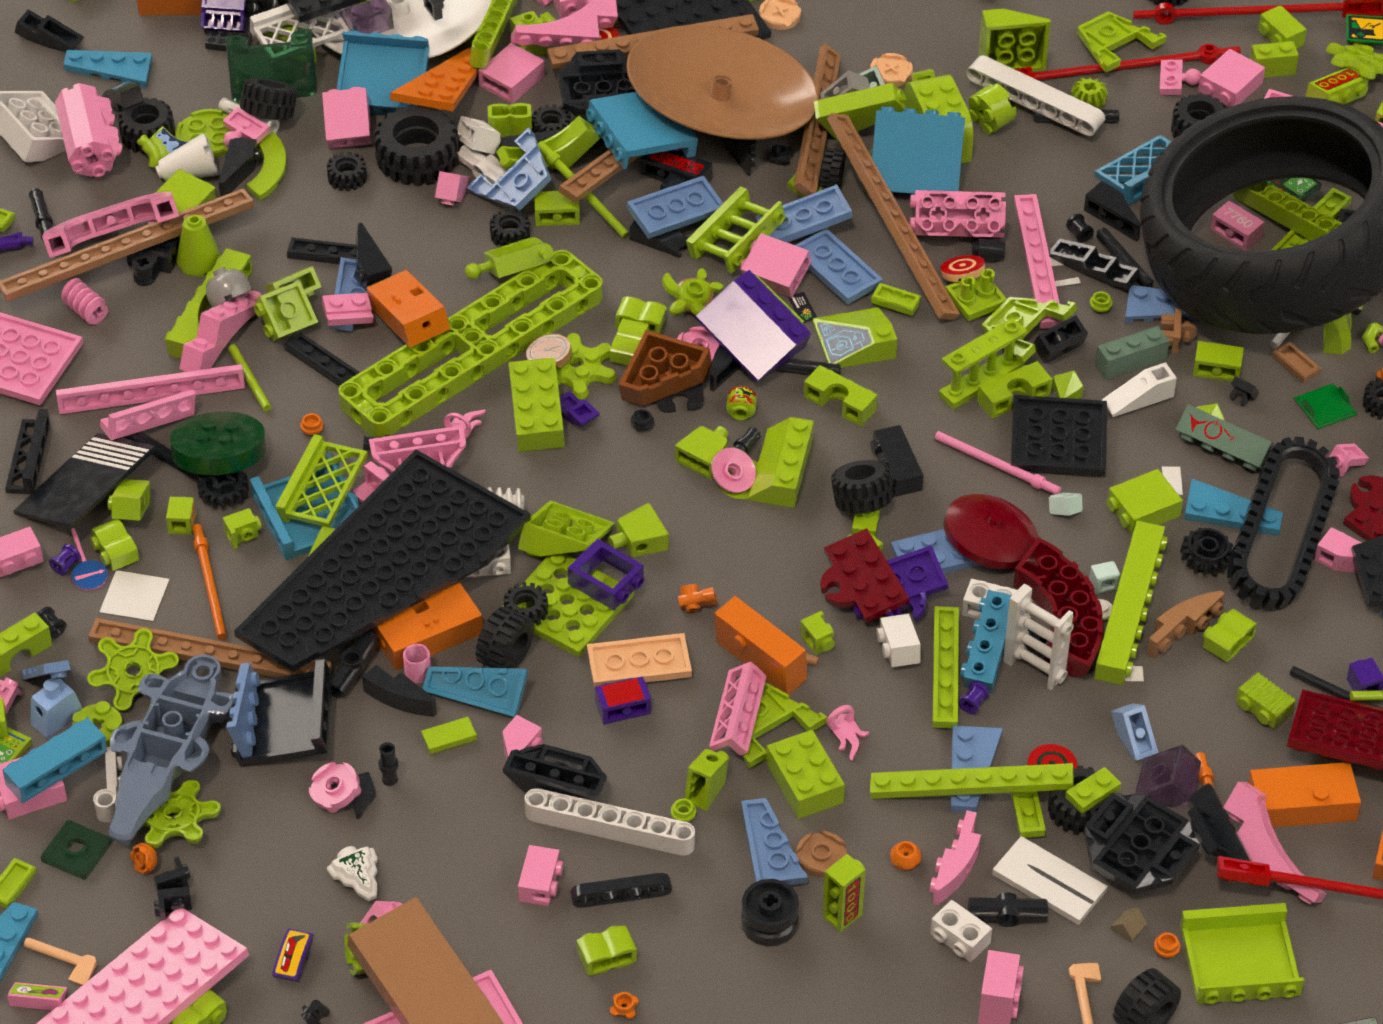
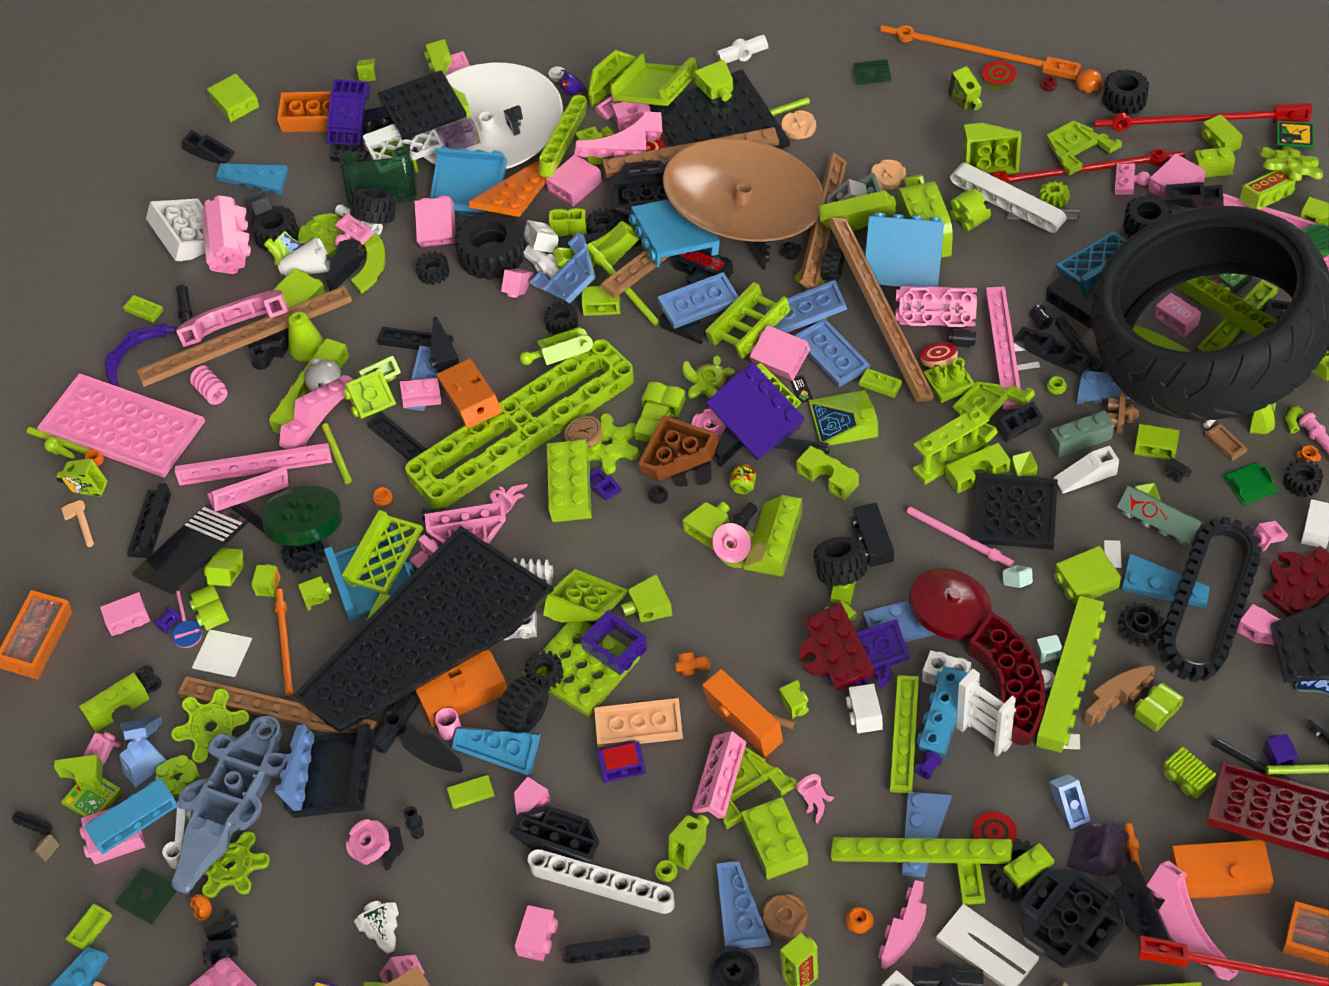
camera: 10 degrees right, 5 degrees up
(1248, 90) = (1194, 195): none -> black slope

